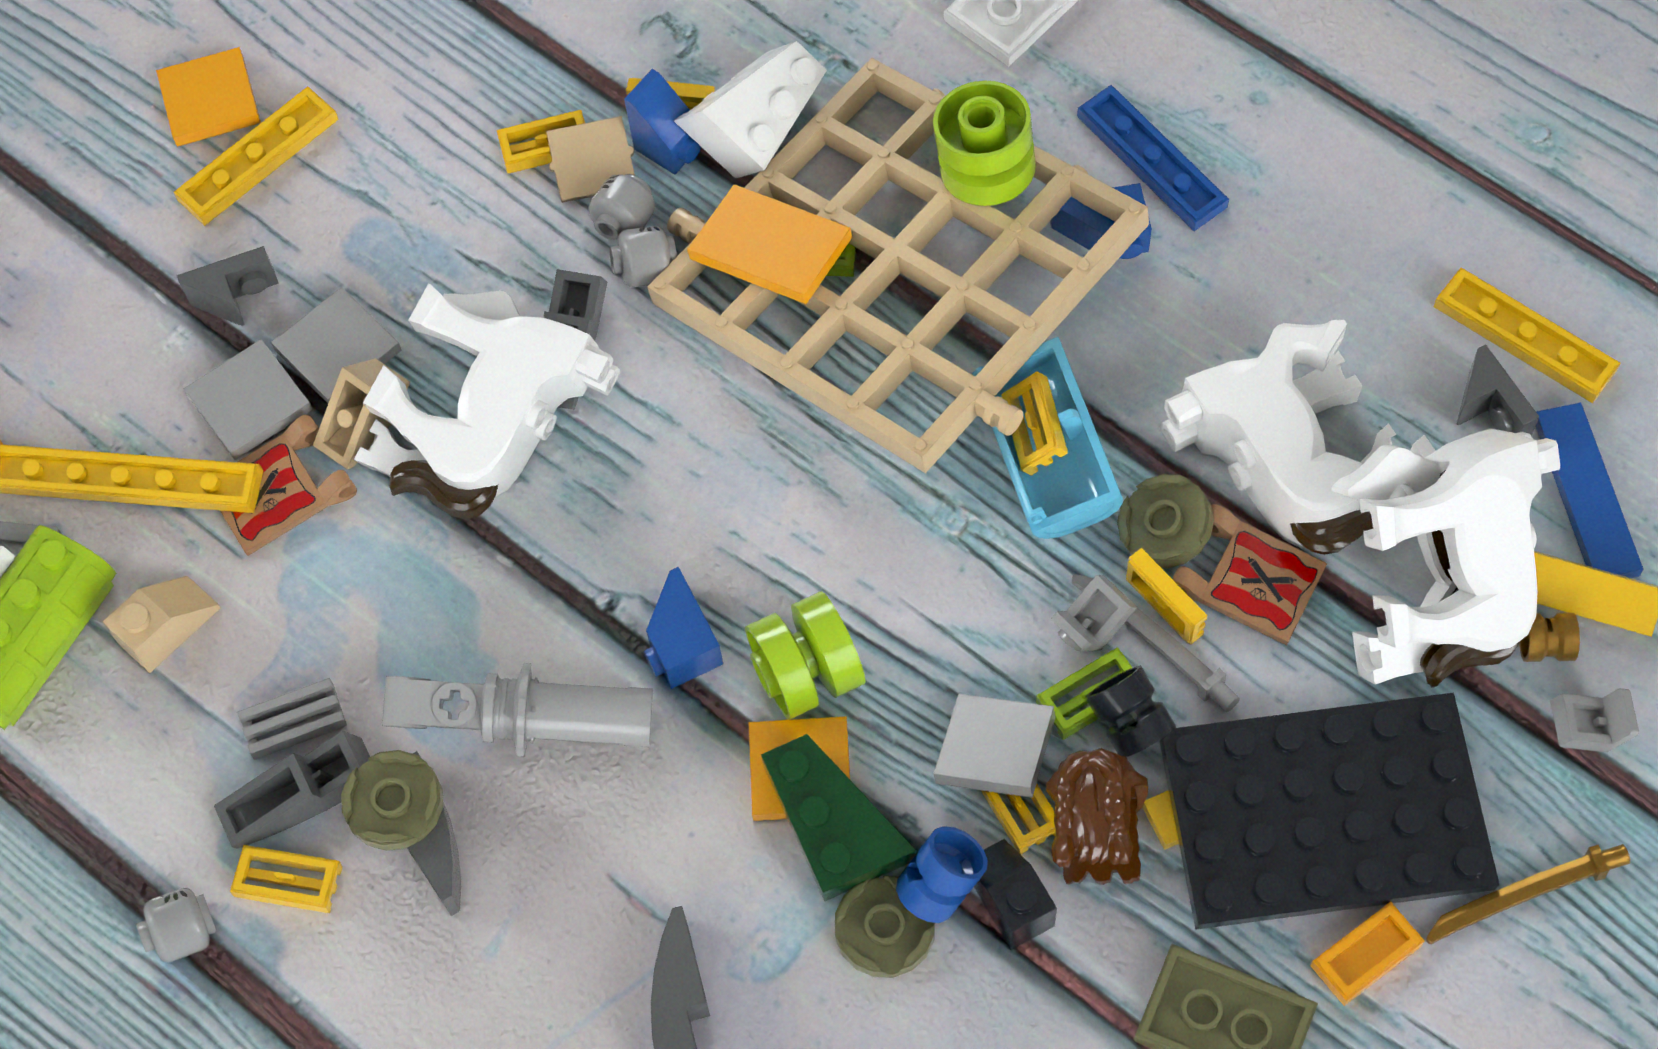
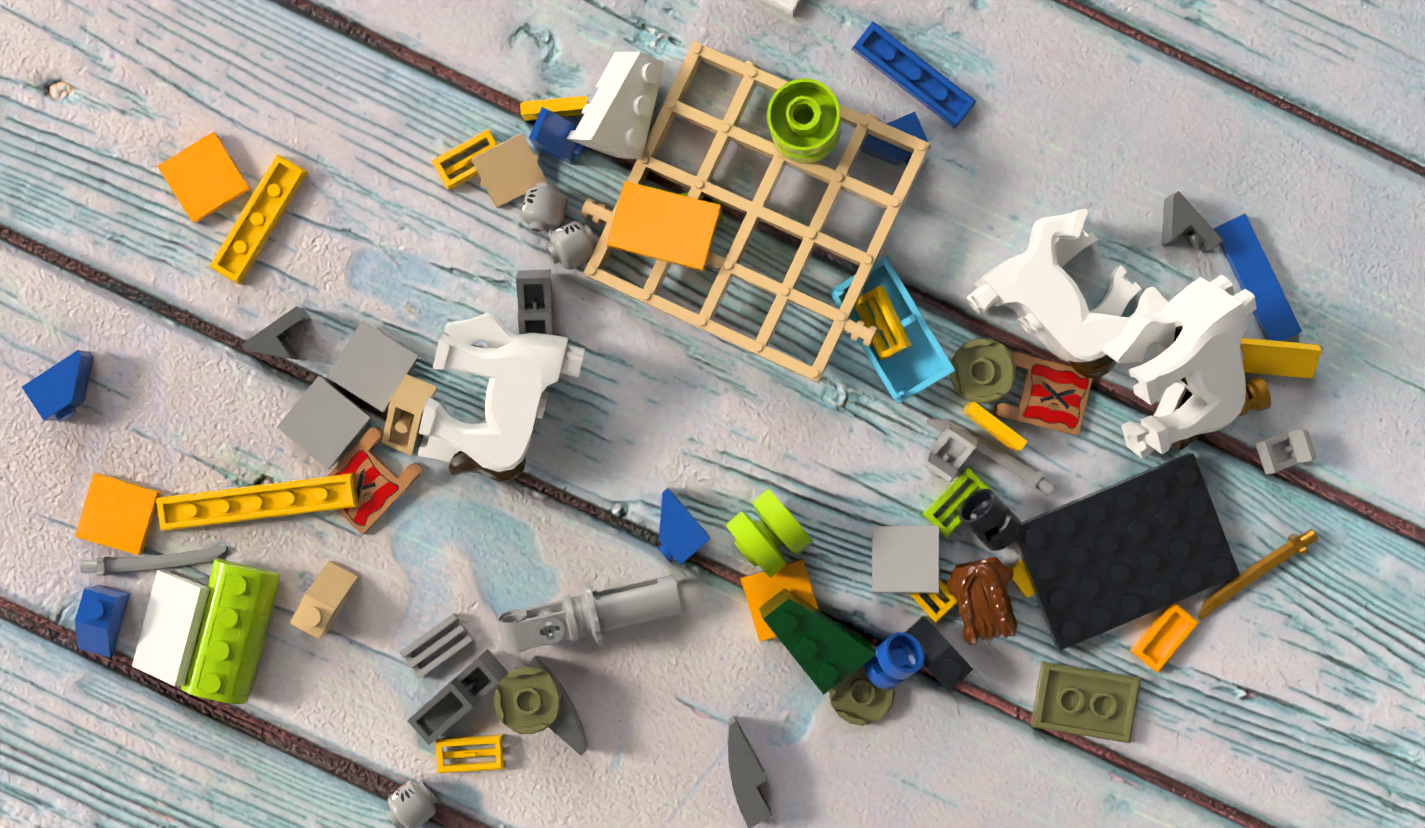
camera: 20 degrees left, 25 degrees up
(1526, 335) = (1199, 164): yellow tile -> none

